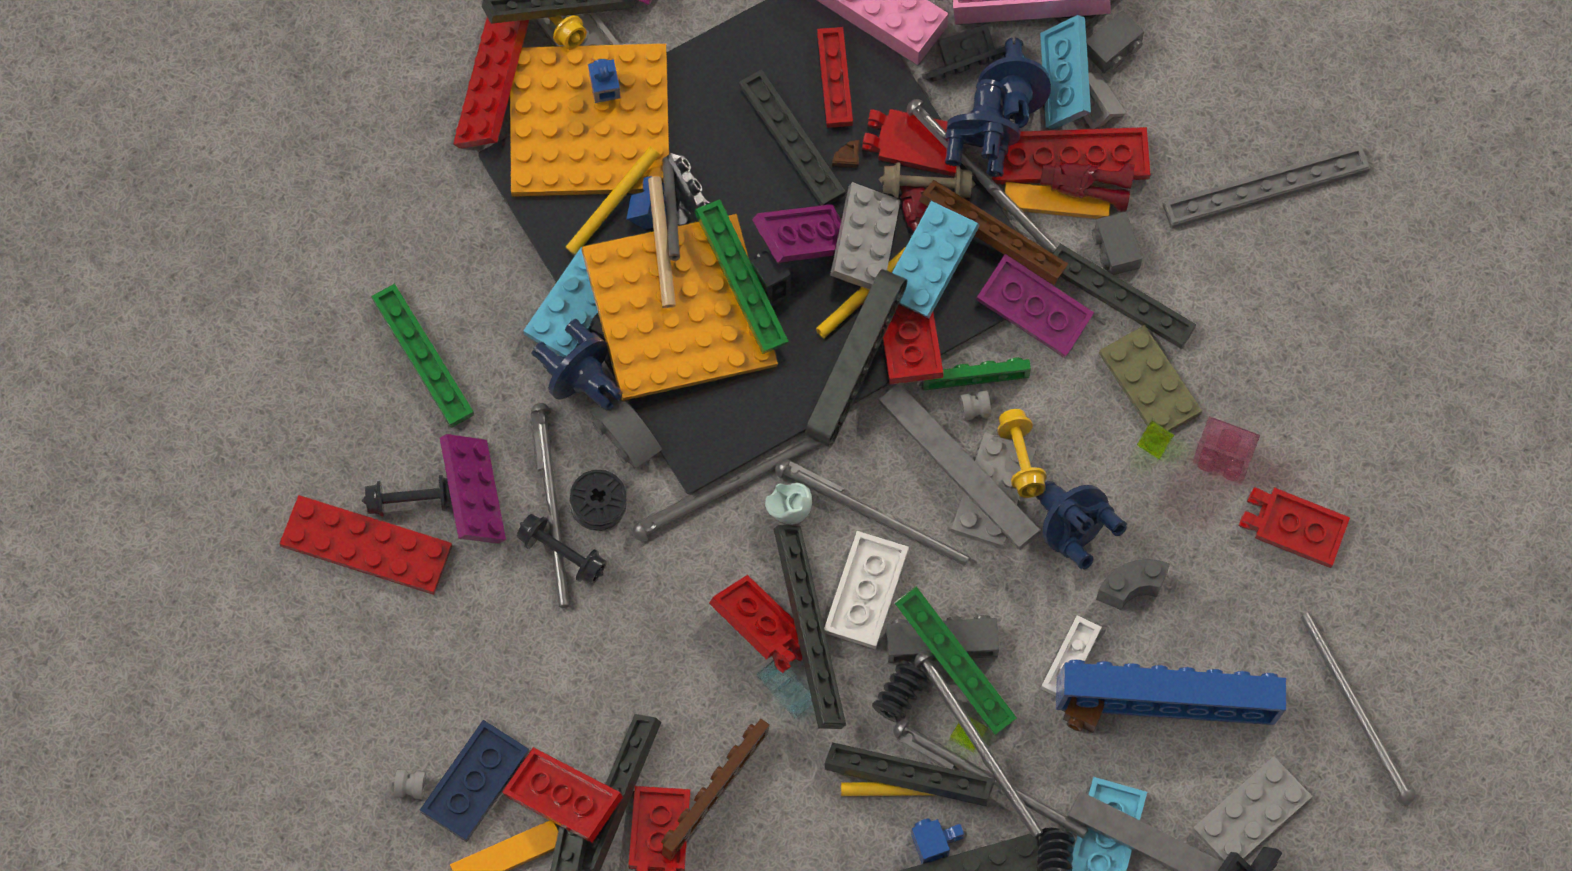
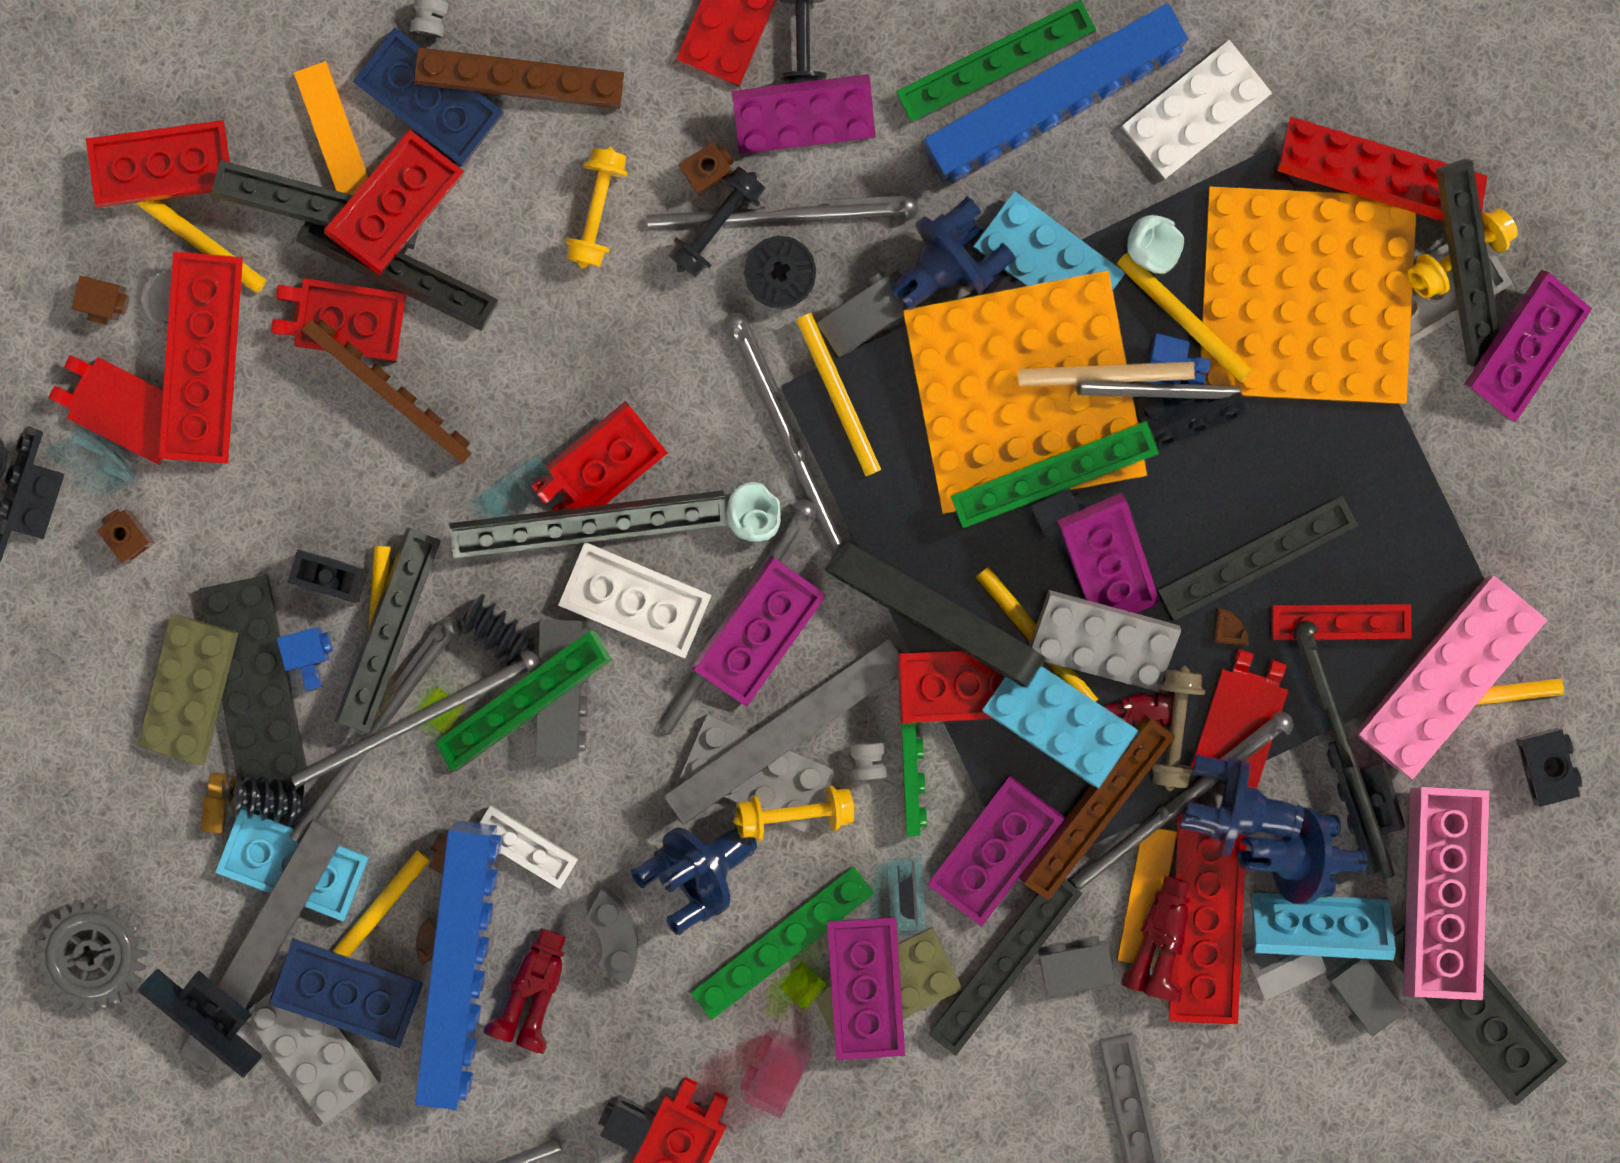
camera: 95 degrees right, 20 degrees up
(447, 306) = (1054, 93): none -> blue brick
(451, 210) = (1196, 110): none -> white plate
(455, 709) = (519, 78): none -> reddish brown plate
(519, 561) = (707, 167): none -> reddish brown brick
(520, 636) = (607, 164): none -> yellow piece
(558, 225) = (1155, 244): none -> light aqua hair
(604, 80) = (1352, 316): blue brick -> none
(691, 448) = (838, 394): none -> yellow piece
(845, 96) = (1304, 636): none -> pearl dark grey bar
(869, 824) = (328, 576): none -> black brick
(882, 492) = (758, 631): none -> magenta plate
(1076, 370) = (906, 893): none -> clear light blue slope
(1124, 460) = (782, 943): none -> green plate
(1144, 776) = (382, 904): none -> yellow piece
(1151, 389) = (866, 988): none -> magenta plate
(1155, 728) = (425, 941): none -> reddish brown tile
(1175, 639) = (537, 974): none -> dark red piece
(1204, 783) = (345, 993): none -> dark blue plate
(1280, 557) = (626, 1123): none -> black brick

